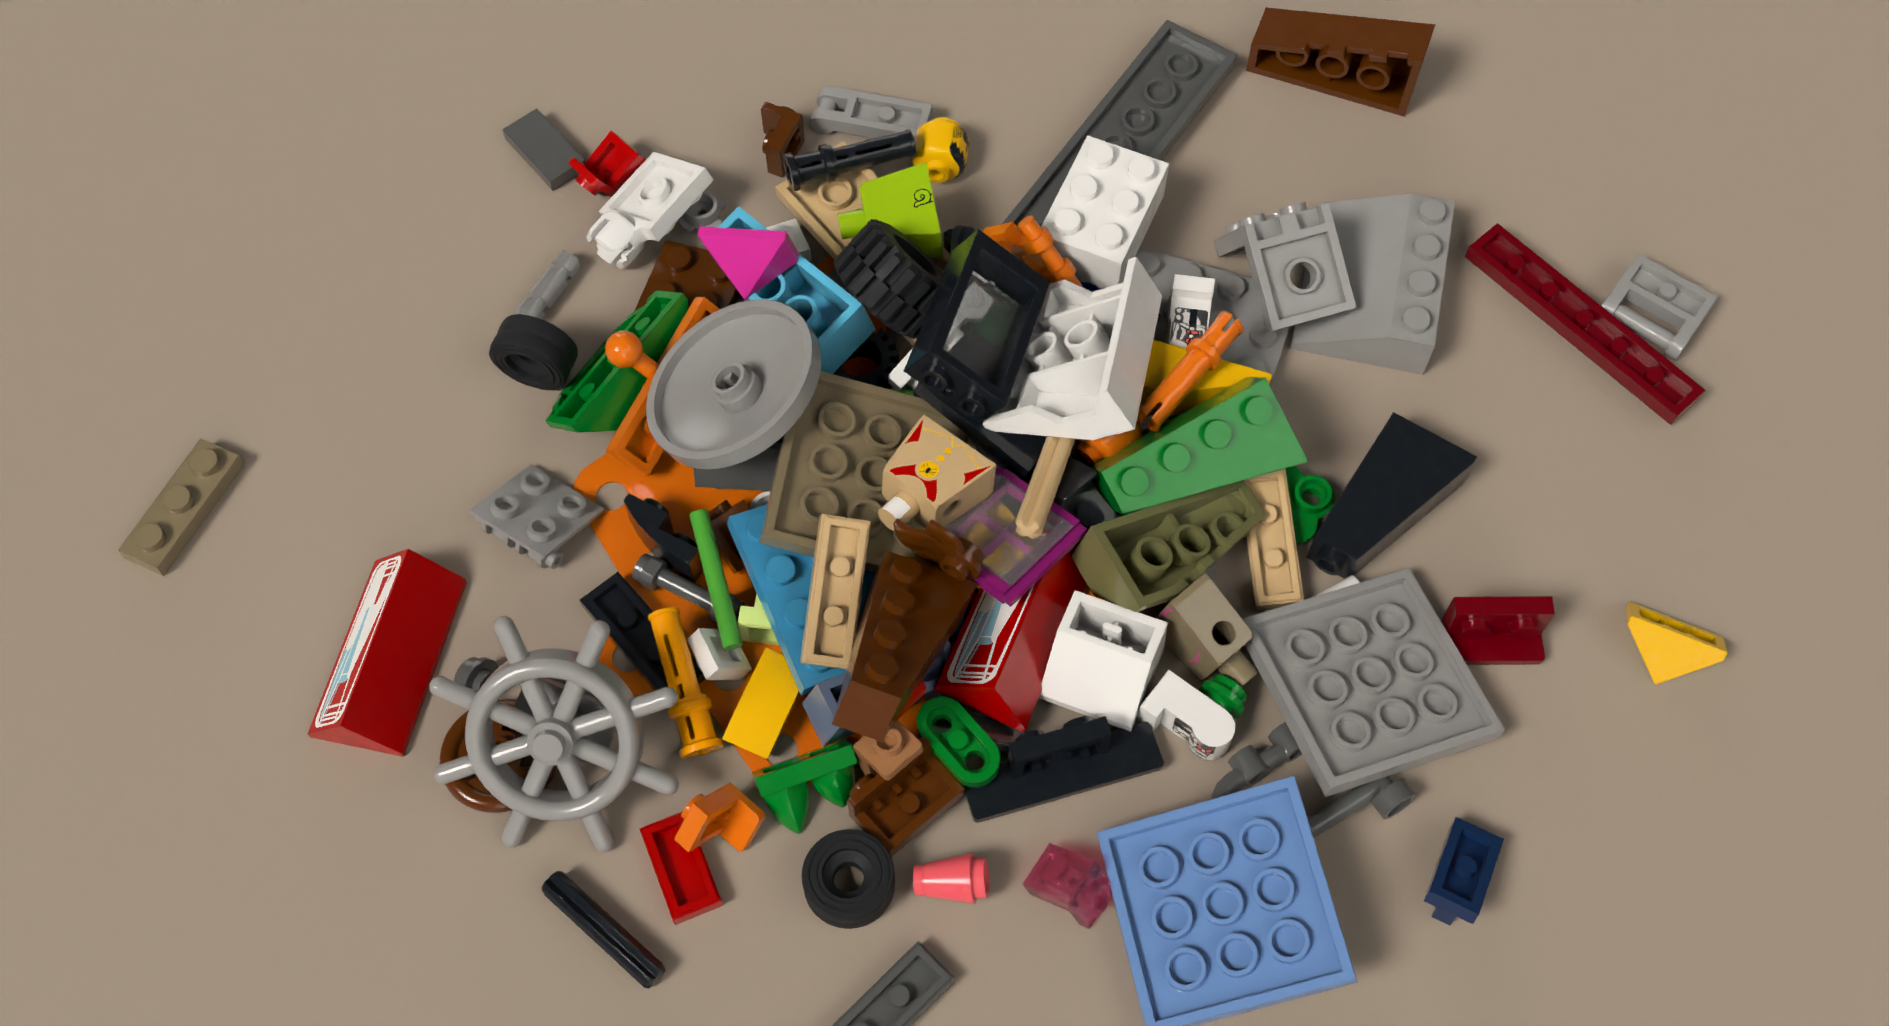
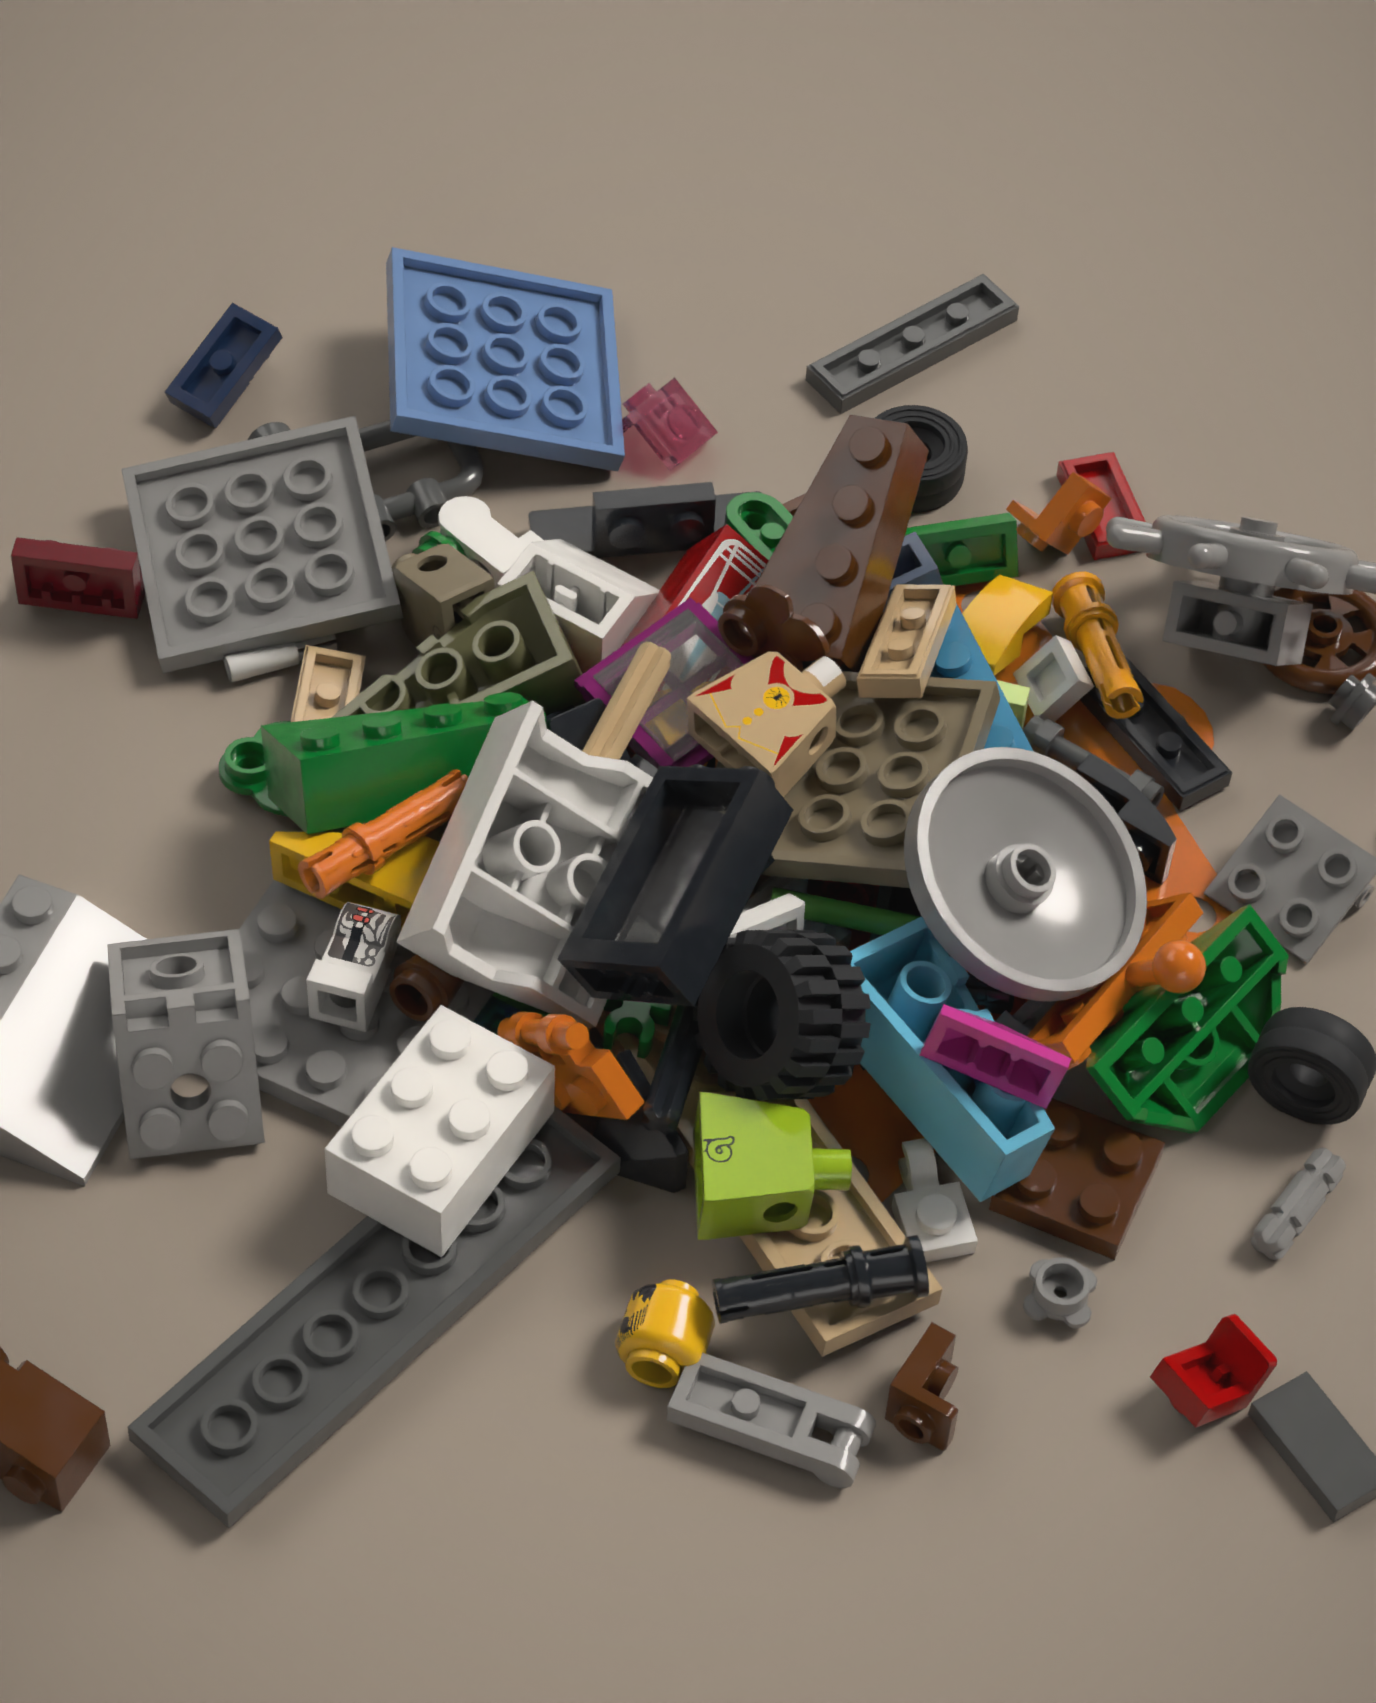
camera: 175 degrees left, 10 degrees down
(603, 929) = (1192, 459): black axle -> none
(647, 207) = (1146, 1283): white plate -> none
(715, 580) = (1051, 715): bright green bar -> none
(953, 878) = (791, 442): coral cone -> none
(1388, 494) = (149, 747): black slope -> none

